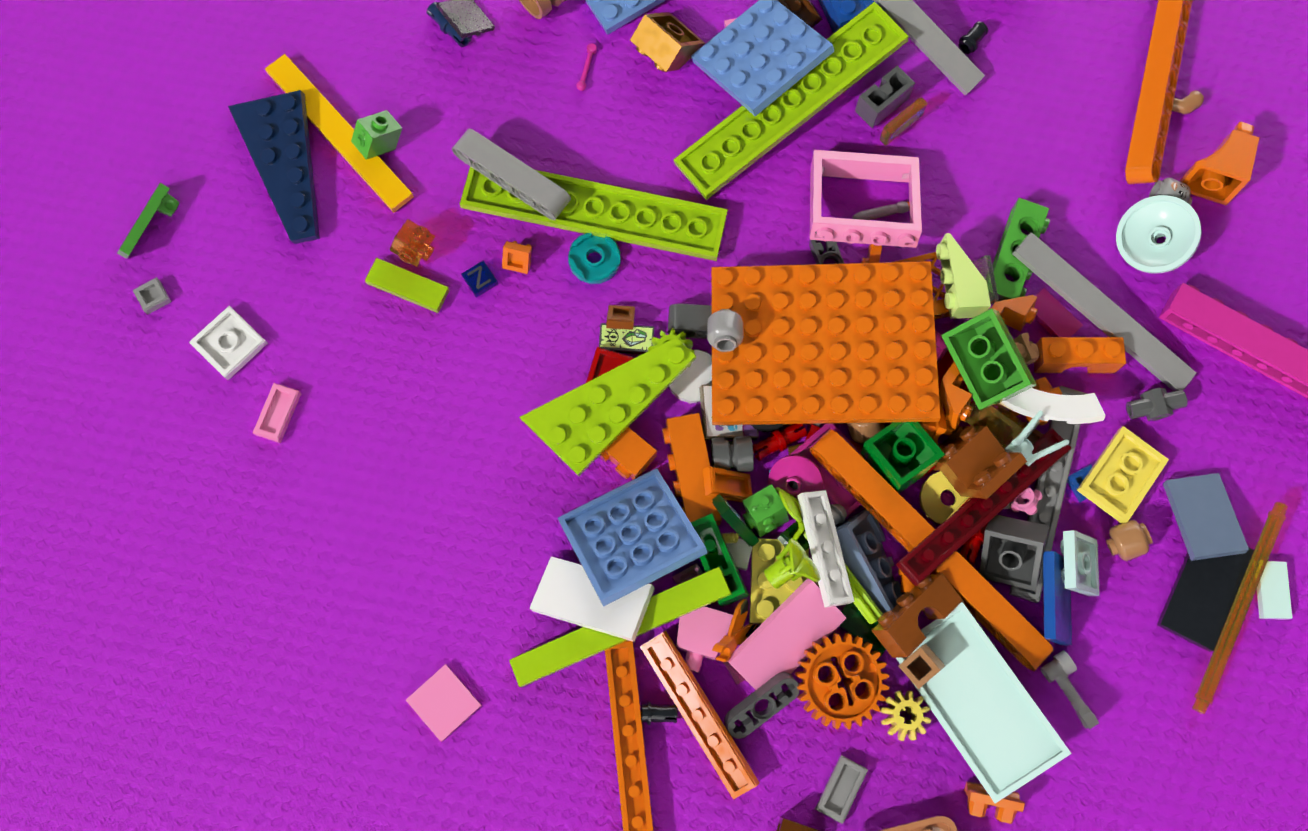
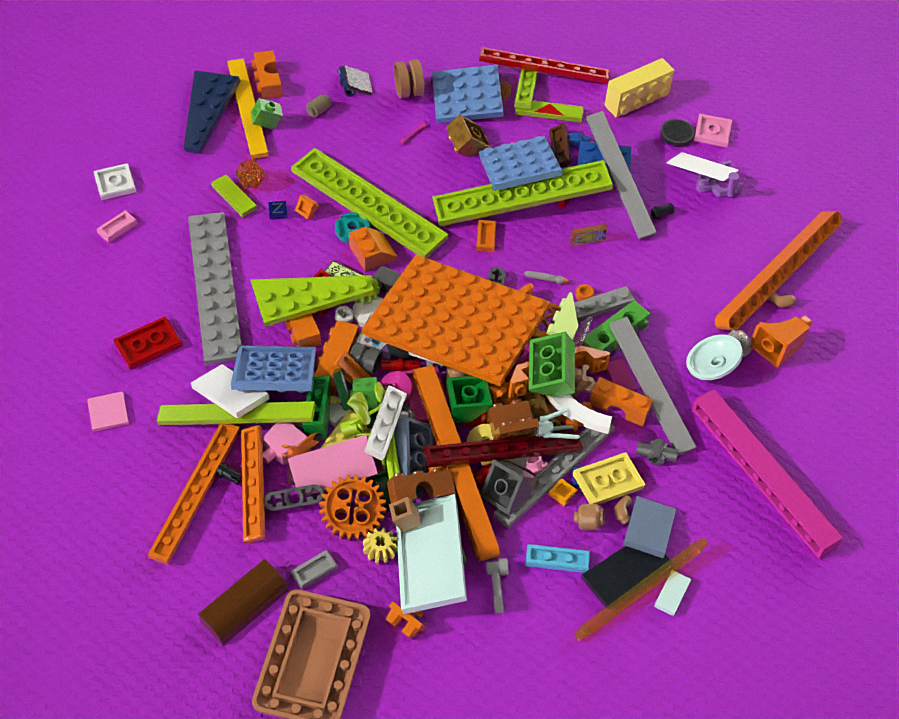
camera: 25 degrees right, 20 degrees down
(152, 296) = (89, 142): light grey tile -> none
(161, 202) = (124, 98): bright green hinge -> none
(347, 80) = (266, 74): none -> orange arch
(432, 573) = (147, 343): none -> red tile
(436, 84) = (318, 105): none -> dark tan brick
(468, 442) = (214, 288): none -> light grey plate
(511, 174) = (329, 162): light grey beam -> none
(620, 317) = (347, 261): dark orange tile -> none
(640, 279) = (371, 248): none -> orange slope
(666, 402) = (344, 314): none -> white tile
(725, 330) = (398, 281): light grey head -> none
(773, 184) = (486, 236): none -> orange tile
(870, 168) = (543, 245): bright pink window -> none
(881, 101) = (583, 216): dark grey brick -> none
(943, 211) = (583, 292): none -> orange tile
(974, 214) = (603, 303): none -> light grey plate
(1056, 601) = (519, 523): blue tile -> none
(1074, 517) = (562, 492): none -> light orange tile
(1080, 563) = (547, 512): light aqua plate -> none
(1117, 614) = (557, 558): none -> medium azure tile
(1156, 508) = (621, 509): none -> medium nougat arm

